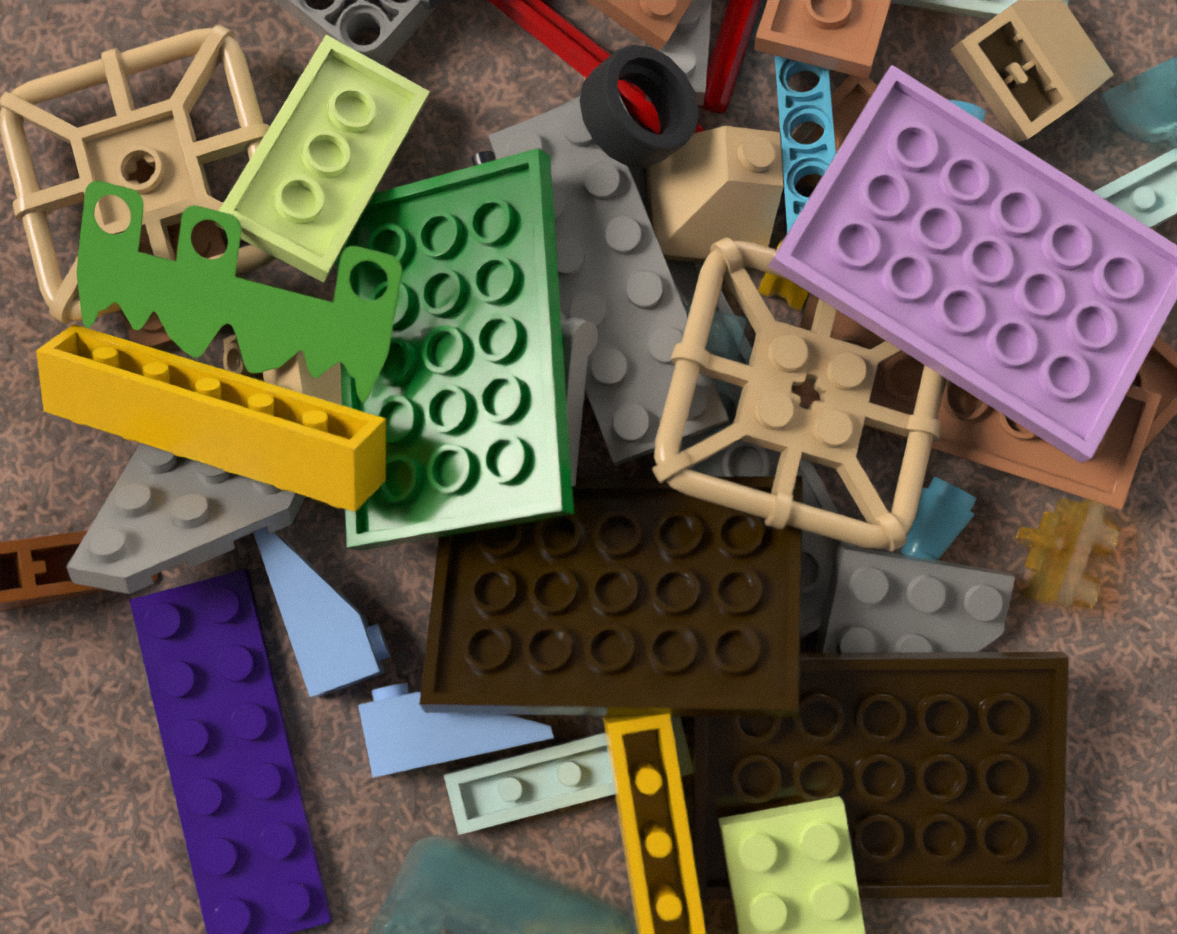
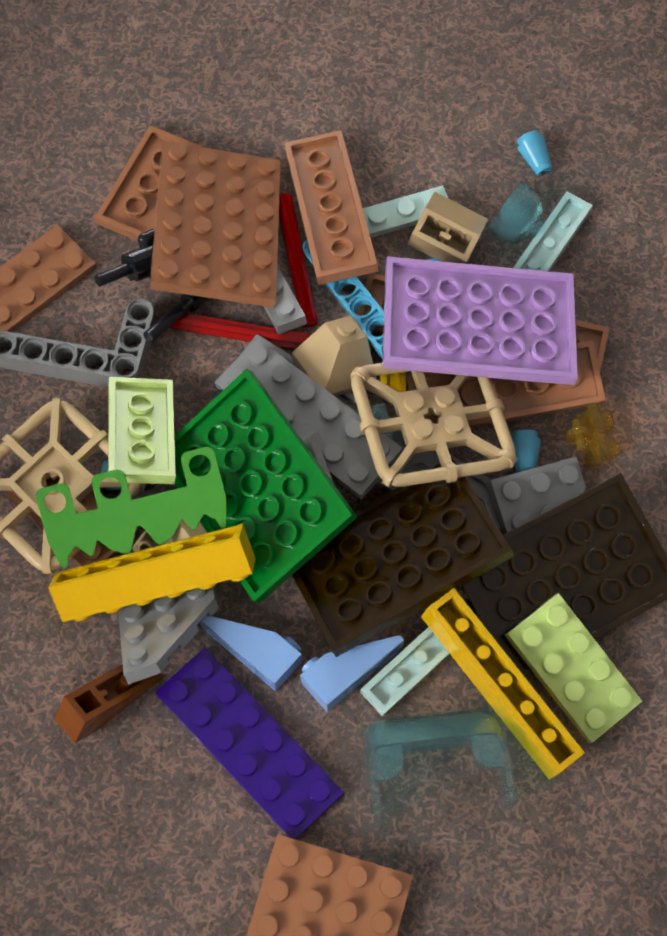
camera: 30 degrees left, 15 degrees down
(664, 85) = (275, 344): black tyre -> none

